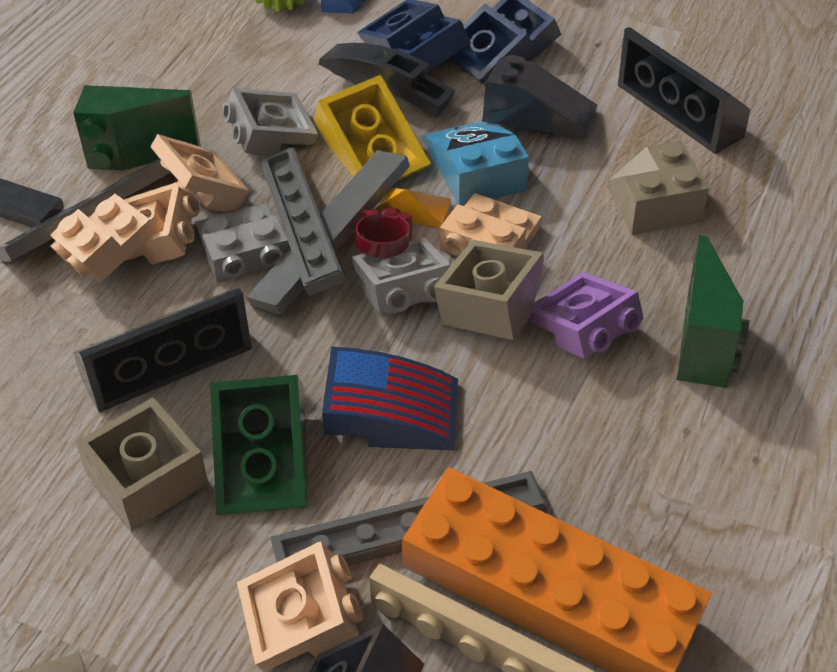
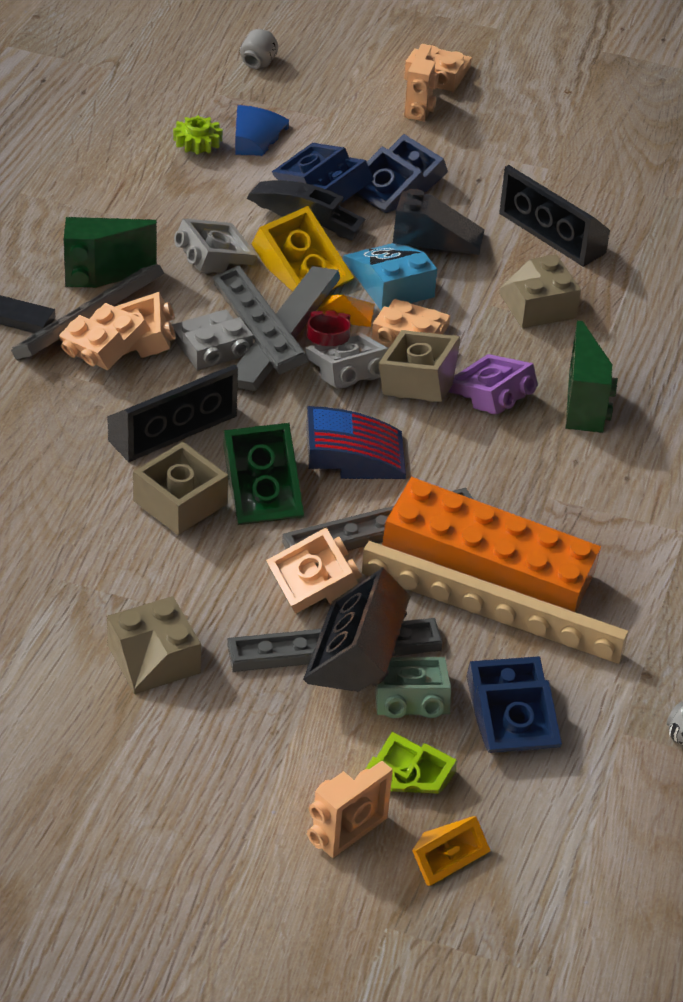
camera: 10 degrees left, 5 degrees down
(201, 173) = (174, 288): light nougat plate -> none

